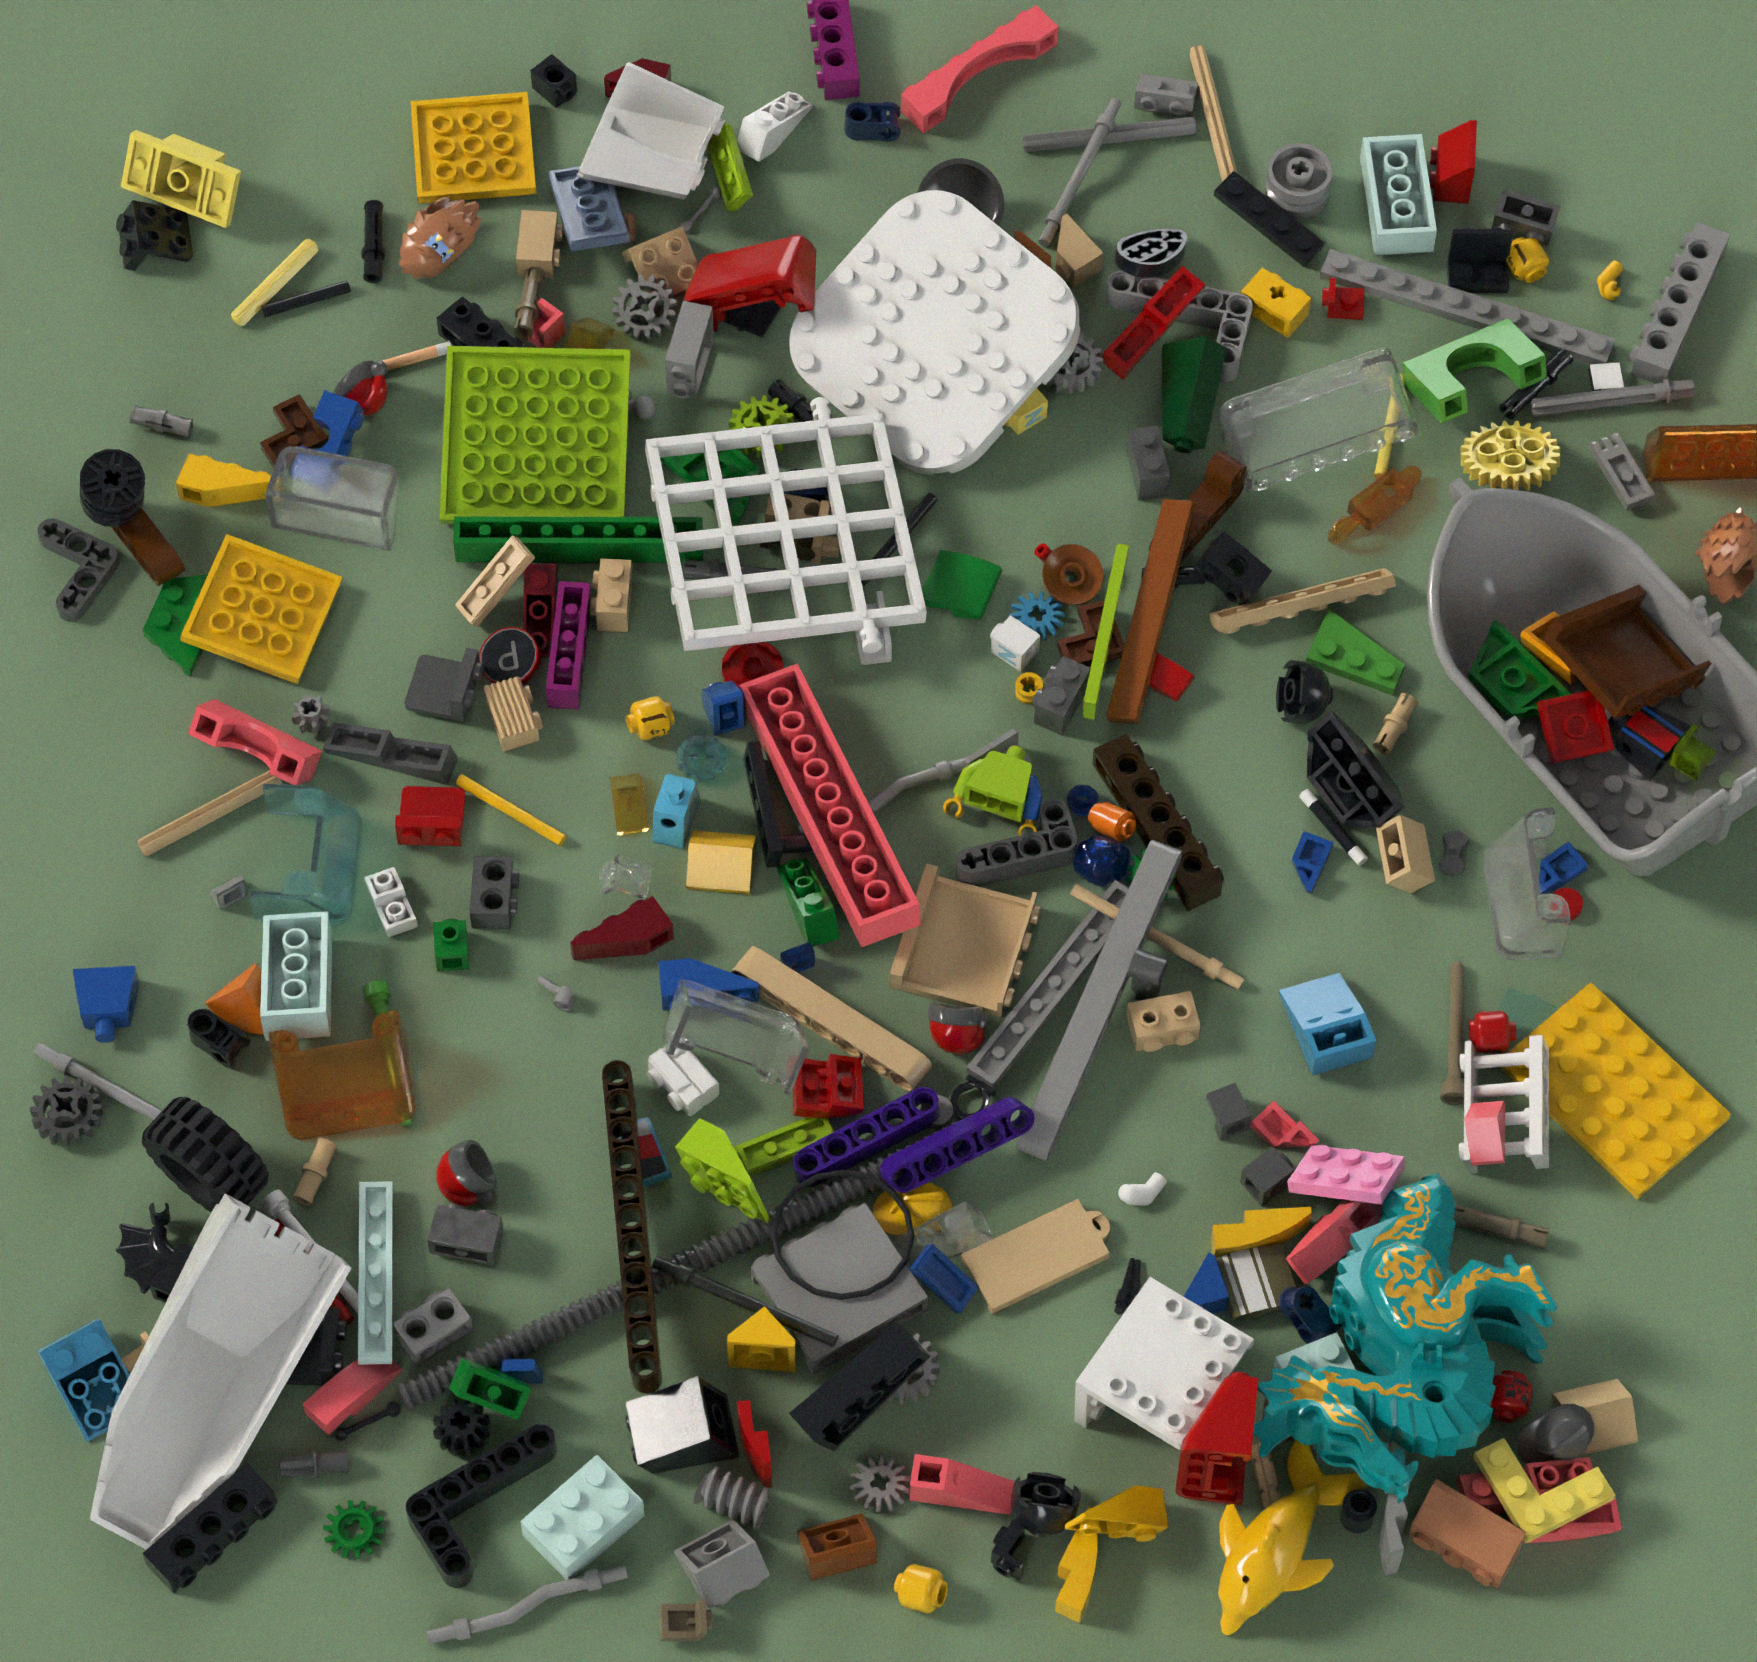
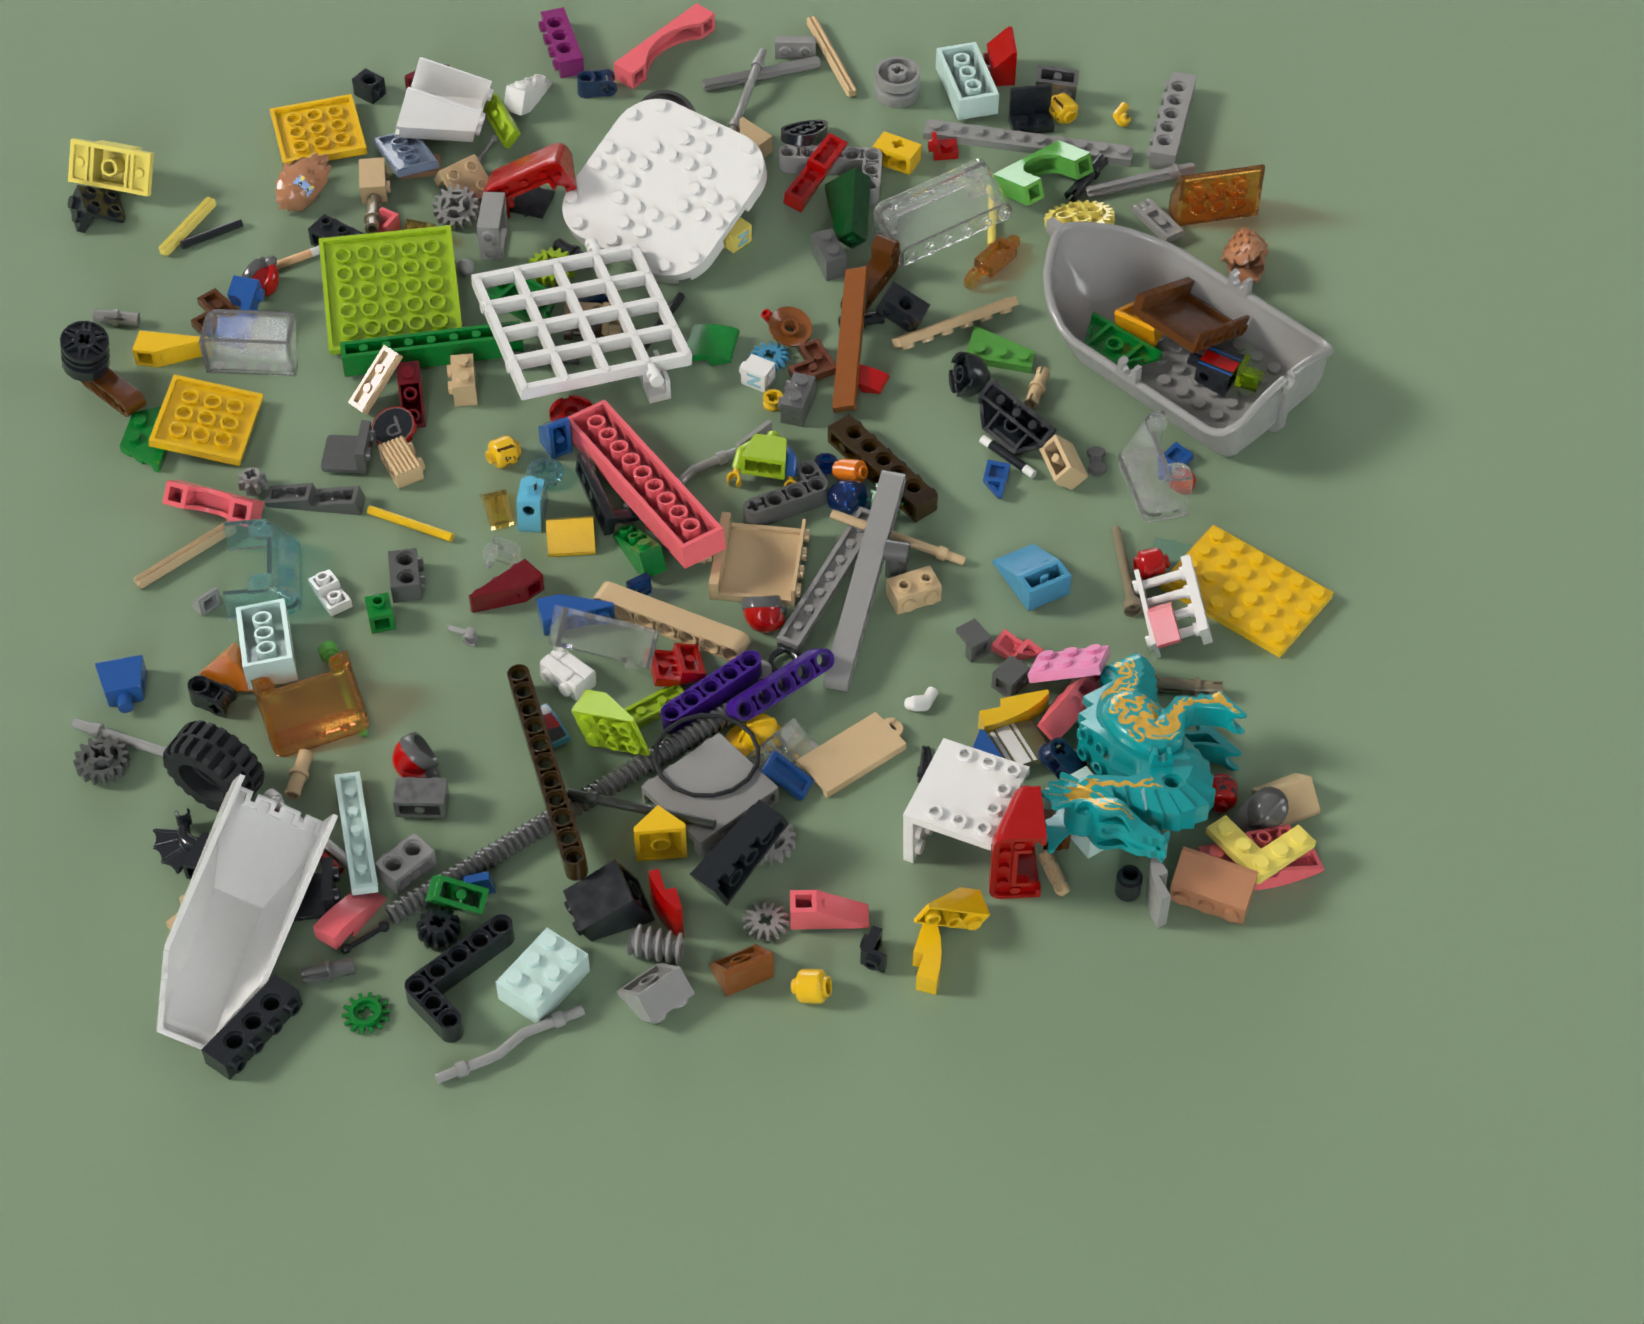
camera: 10 degrees left, 10 degrees down
(86, 1375) = (139, 934): dark azure slope -> none
(88, 567) = (79, 408): dark grey beam -> none
(373, 252) = (255, 198): black pin -> none
(431, 816) = (351, 534): red bracket -> none
(568, 645) = (436, 413): magenta brick -> none
(684, 1621) = (634, 1036): dark tan bracket -> none
(1044, 1503) = (893, 913): black cylinder -> none
(1085, 367) = (767, 206): light grey gear -> none
(1105, 631) = (821, 355): lime tile -> none
(1268, 219) = (881, 106): black plate -> none
(1270, 1551) = (1070, 916): yellow animal -> none
(1574, 727) = (1165, 366): red plate -> none
(1605, 376) = (1132, 168): white tile -> none

